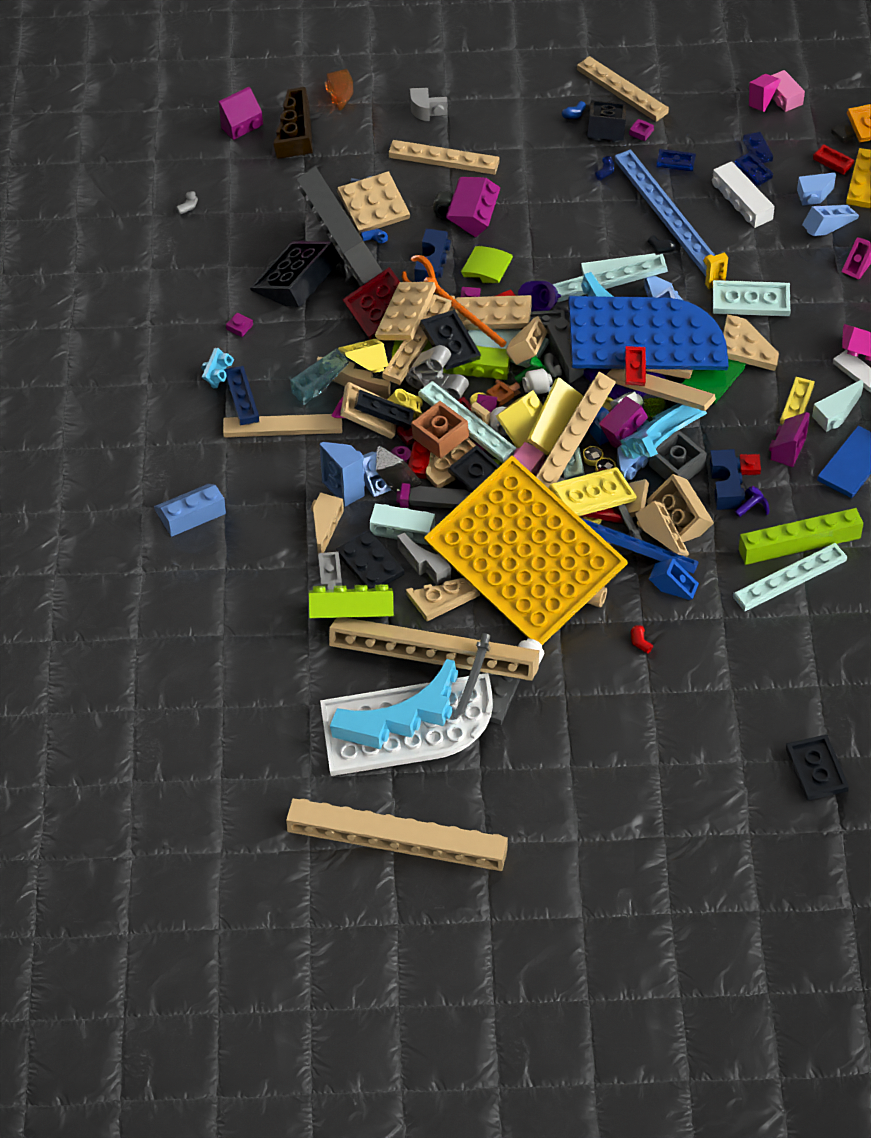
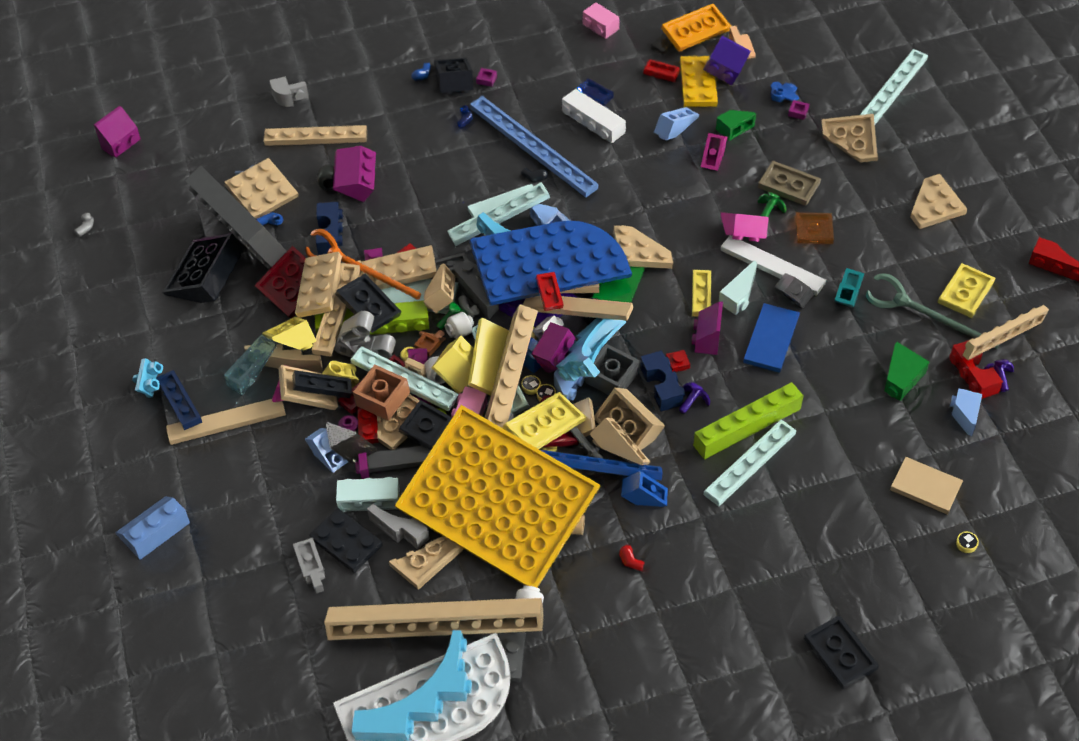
camera: 15 degrees left, 0 degrees up
(239, 324) = (160, 330): magenta plate -> none
(294, 131) = (171, 136): dark brown wedge -> none
(327, 513) = (291, 503): tan slope -> none
(340, 86) = (204, 91): clear orange slope -> none
(342, 471) = (297, 455): medium blue slope -> none
(351, 602) = (339, 590): lime brick -> none
(482, 646) = (486, 608): dark grey sword -> none
(487, 264) = (381, 224): lime slope -> none
(543, 294) = (442, 241): dark purple piece -> none
(622, 89) = (459, 45): tan plate -> none
(653, 406) = (575, 324): clear neon green plate -> none
(676, 160) = (525, 97): clear blue plate -> none
(716, 268) = (592, 187): yellow tile -> none
(751, 298) = (630, 206): light aqua plate -> none
(758, 147) = (592, 71): clear blue plate -> none
(762, 90) = (582, 24): dark pink slope -> none
(815, 188) = (653, 98): light blue slope -> none

